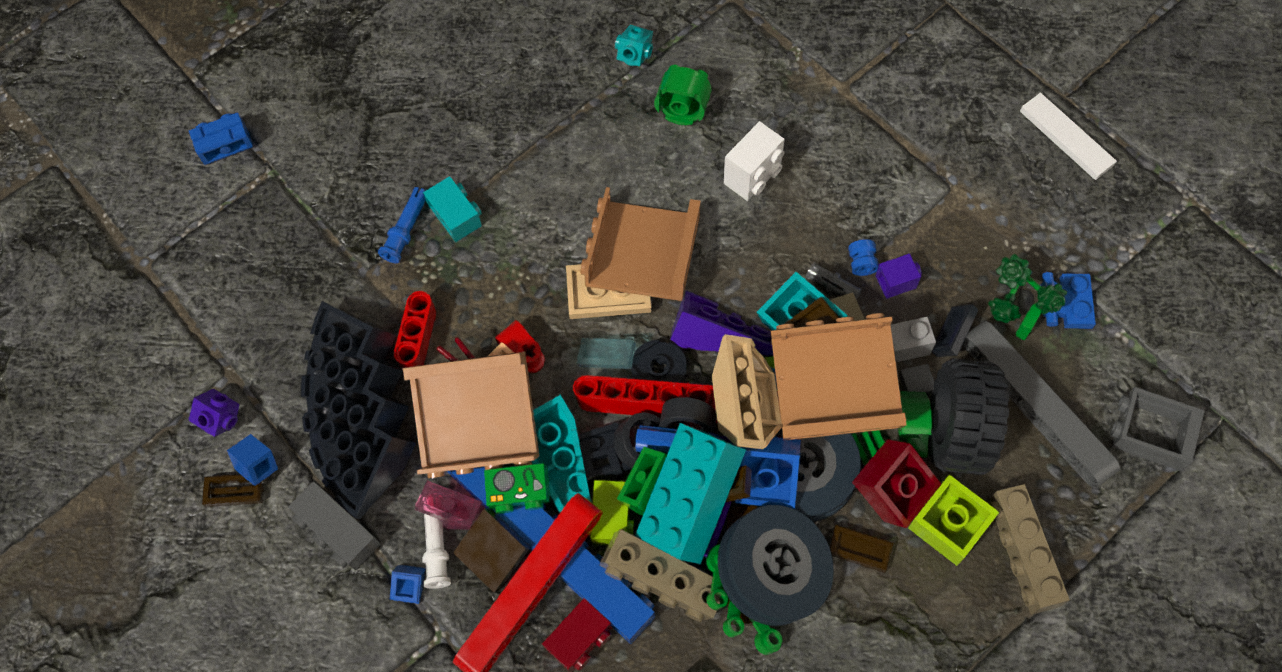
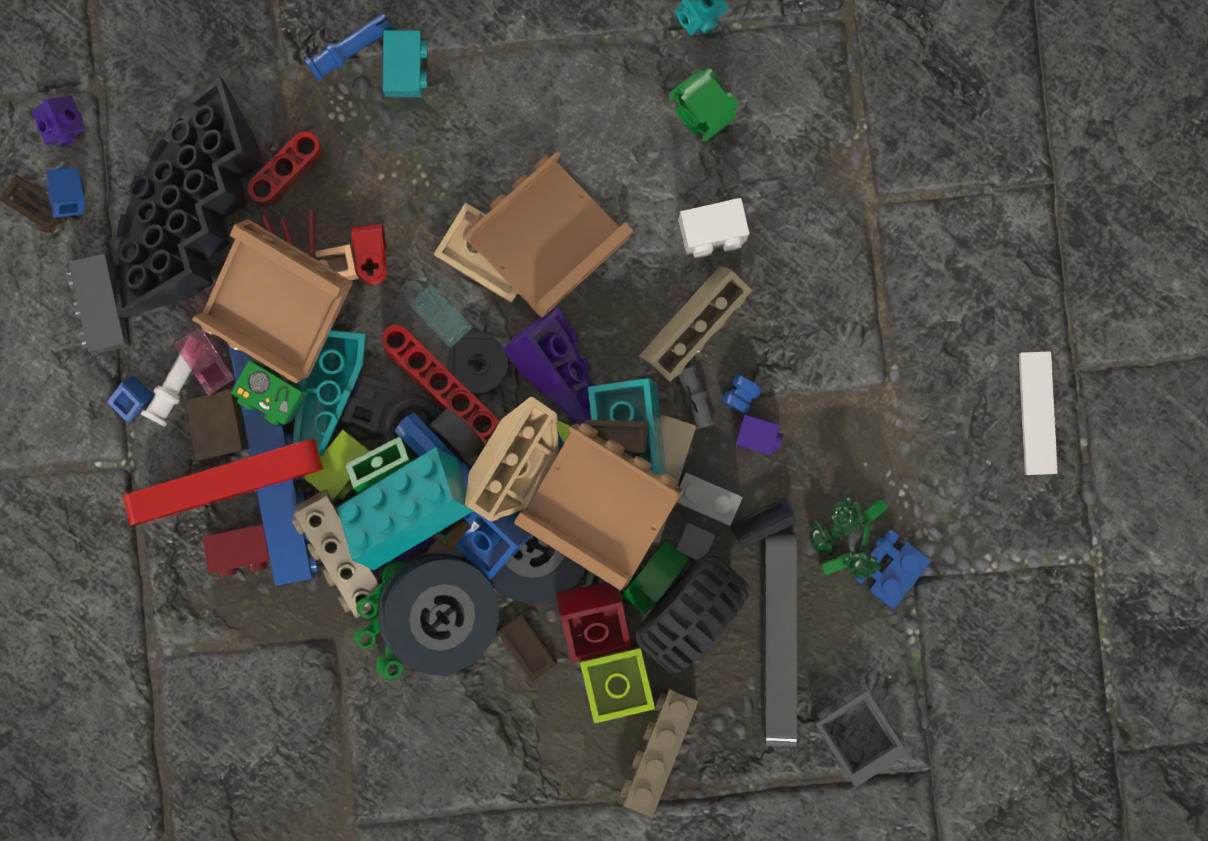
camera: 30 degrees right, 20 degrees up
(793, 228) = (695, 323): none -> dark tan brick

